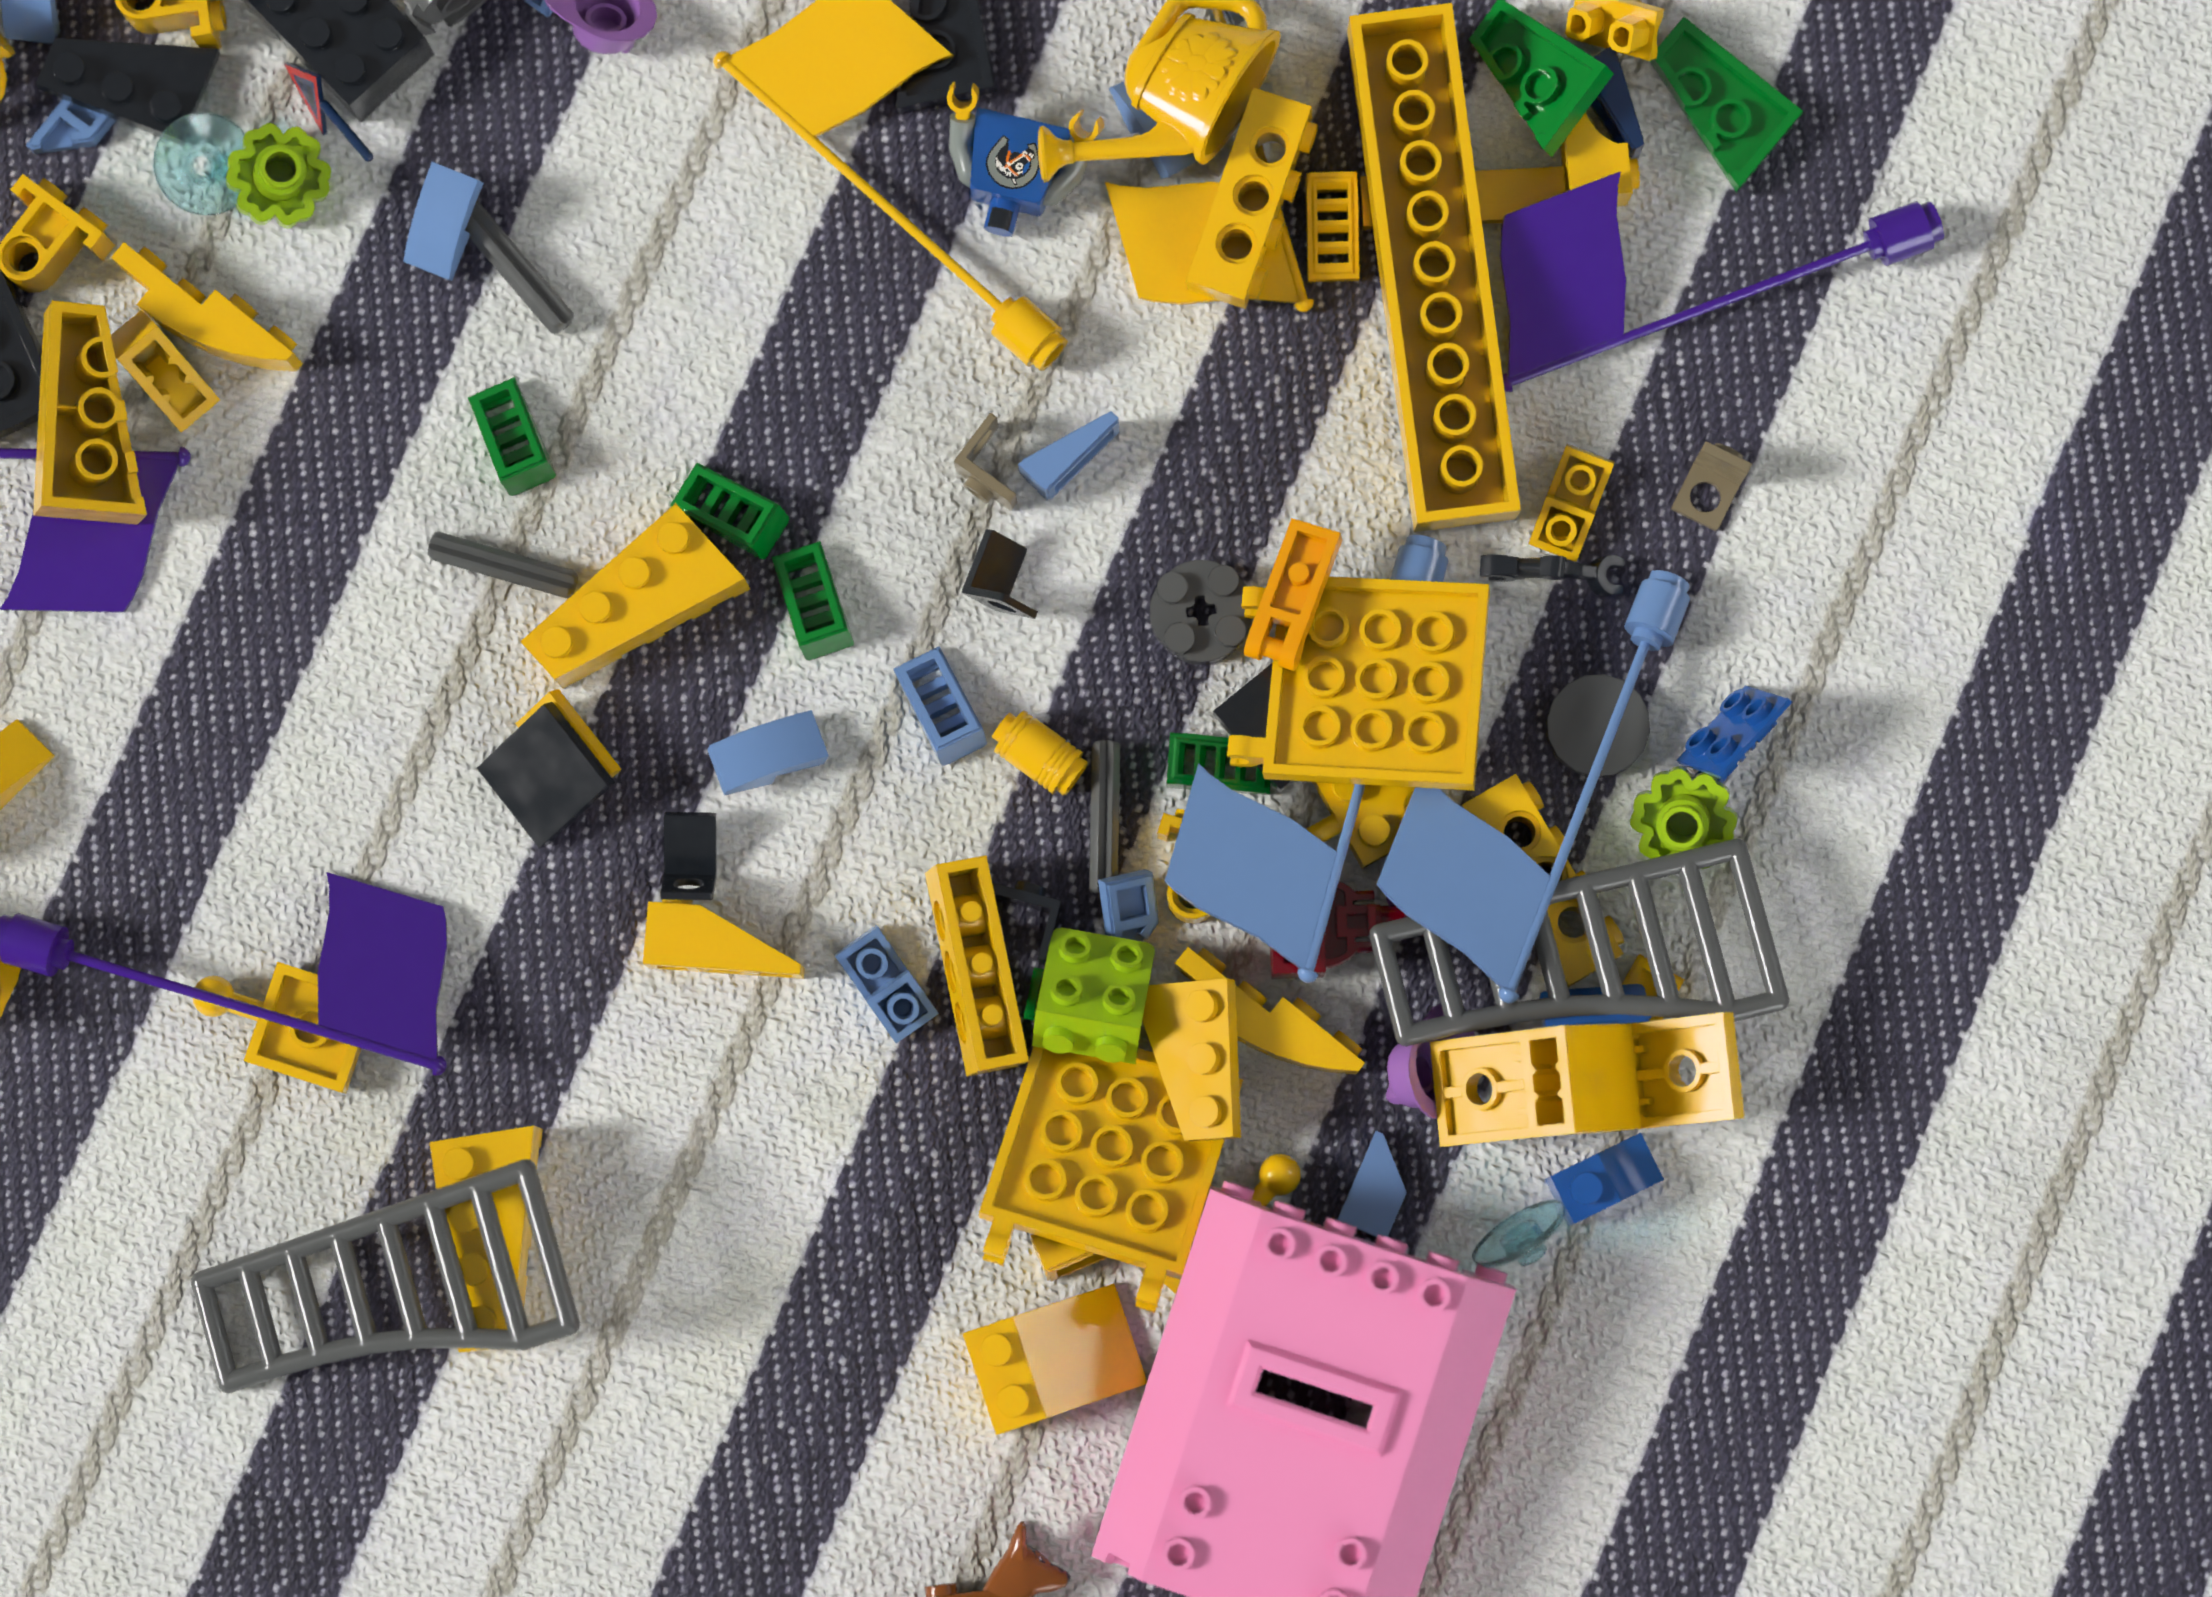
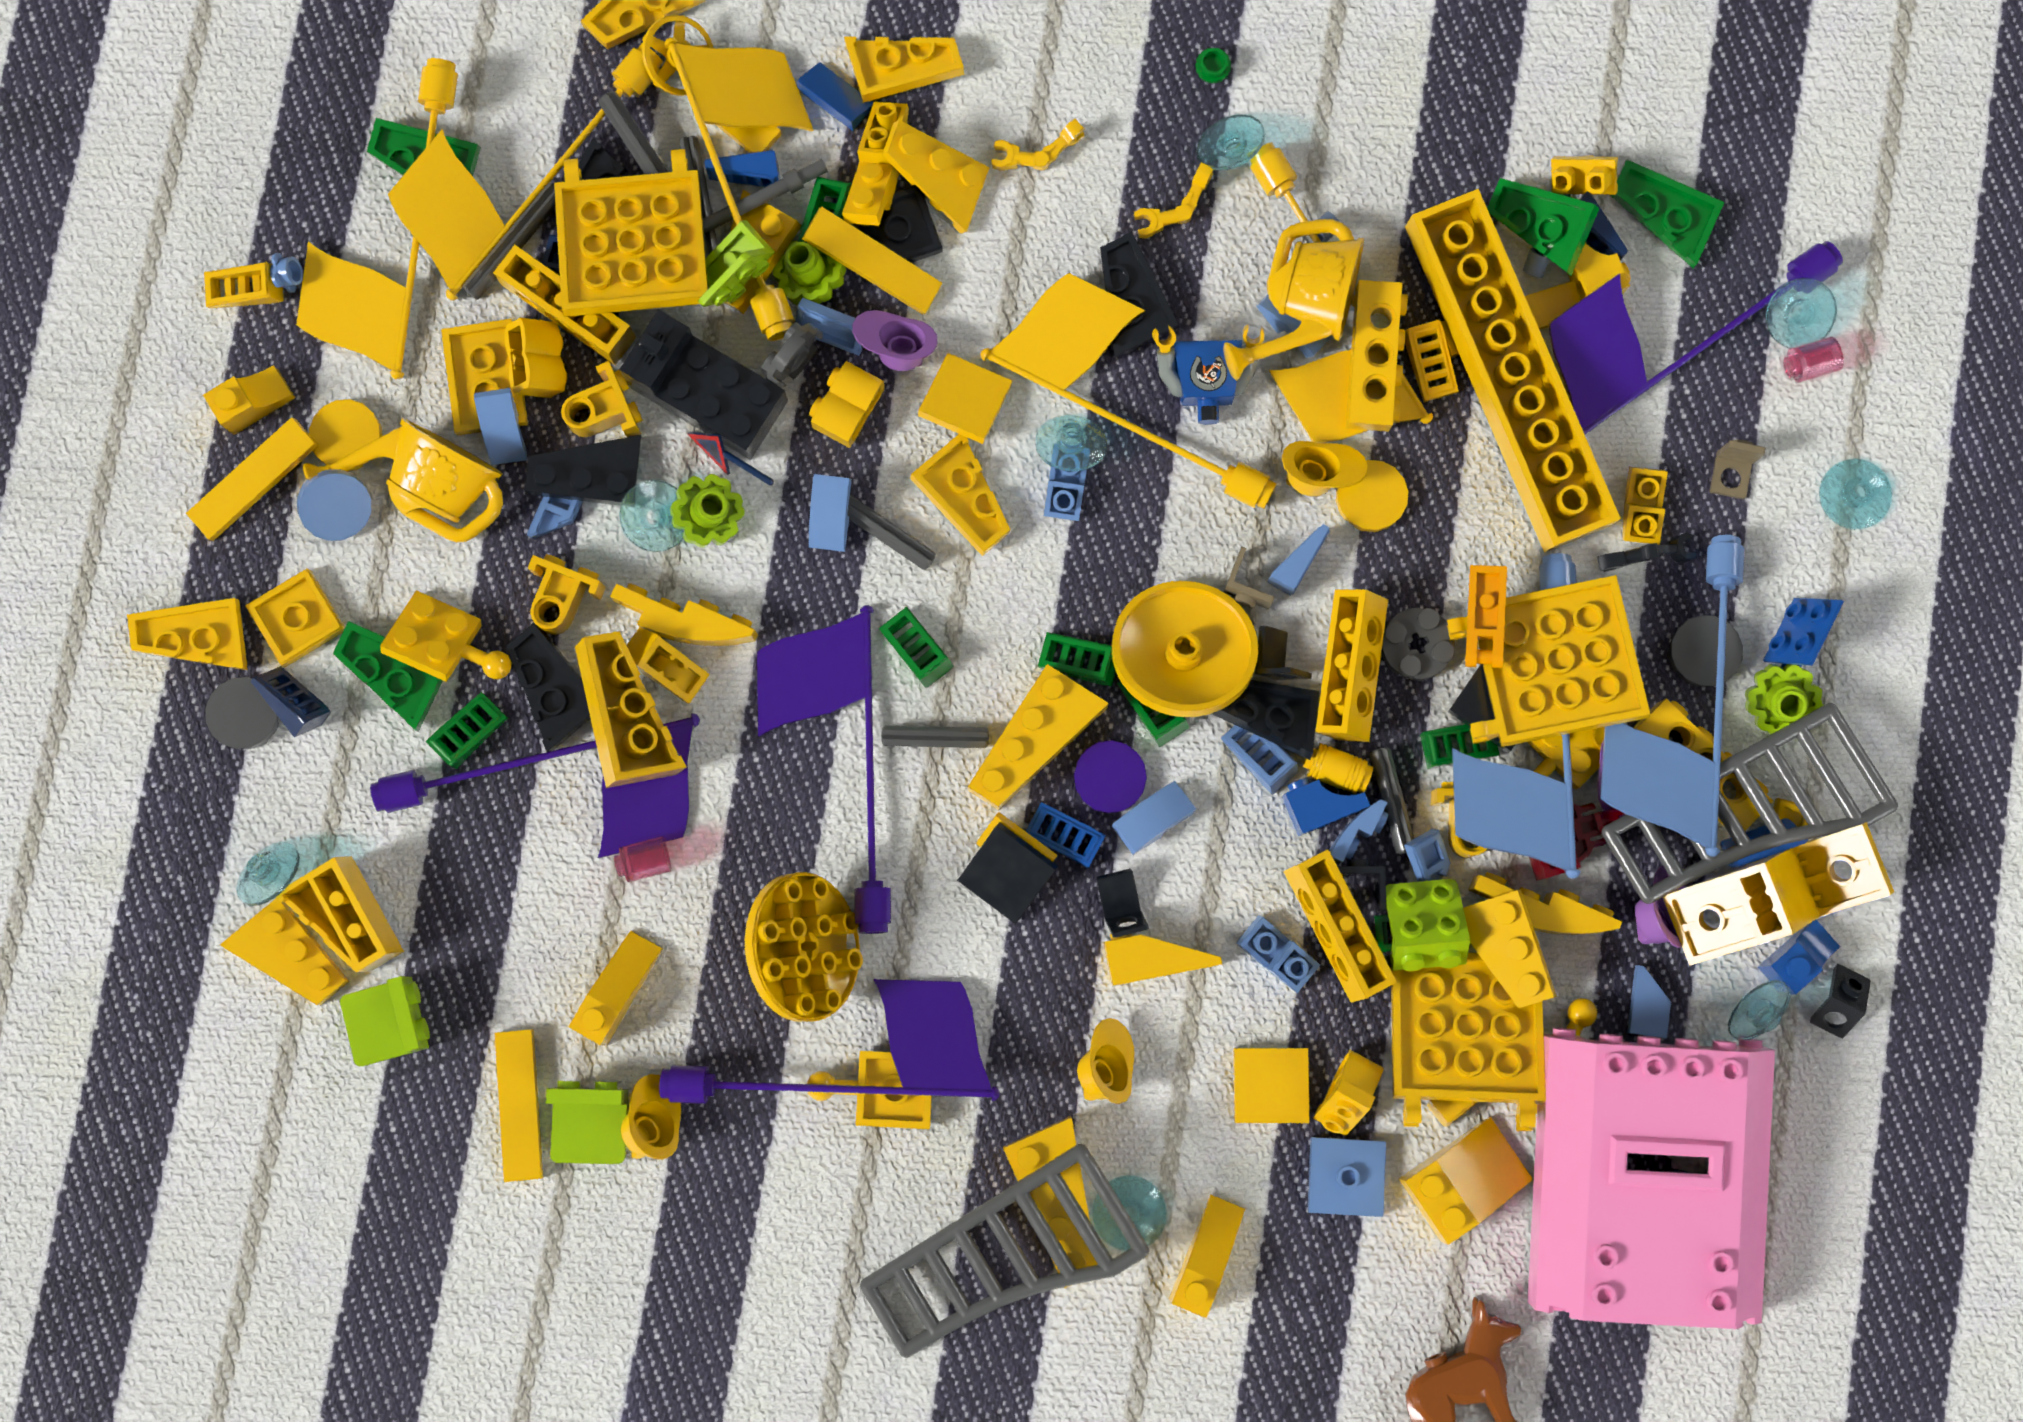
camera: 20 degrees left, 0 degrees up
(59, 626) = (643, 859): none -> clear pink brick
(233, 798) = (800, 947): none -> yellow bracket
(365, 442) = (816, 677): none -> dark purple flag
(509, 78) = (846, 404): none -> yellow brick
(610, 1067) = (1109, 1063): none -> yellow piece
(611, 1275) = (1134, 1193): none -> clear light blue dish
(633, 242) = (961, 493): none -> yellow wing
(670, 774) = (1092, 848): none -> blue slope
(670, 1366) = (1207, 1257): none -> yellow slope
(673, 112) = (965, 398): none -> yellow tile
(726, 682) = (1110, 777): none -> dark purple tile
(781, 264) = (1064, 494): none -> medium blue slope
(800, 211) = (1071, 443): none -> clear light blue dish
(825, 1159) = (1271, 1085): none -> yellow tile
(873, 532) = (1184, 648): none -> yellow dish
(893, 1311) = (1346, 1176): none -> medium blue plate
(925, 1197) = (1349, 1093): none -> yellow pin
(964, 647) = (1277, 714): none -> black wing
(994, 799) = (1314, 806): none -> blue arch
(1054, 835) = (1364, 824): none -> medium blue slope
(1096, 615) = (1351, 665): none -> yellow brick
(1134, 332) = (1320, 466): none -> yellow piece
(1196, 391) = (1376, 500): none -> yellow tile
(1514, 131) = (1535, 263): none -> sand blue piece
(1650, 1251) = (1846, 996): none -> black bracket
(1860, 585) = (1844, 505): none -> clear light blue dish
(1864, 362) = (1814, 359): none -> clear pink brick
(1868, 317) = (1816, 314): none -> clear light blue dish

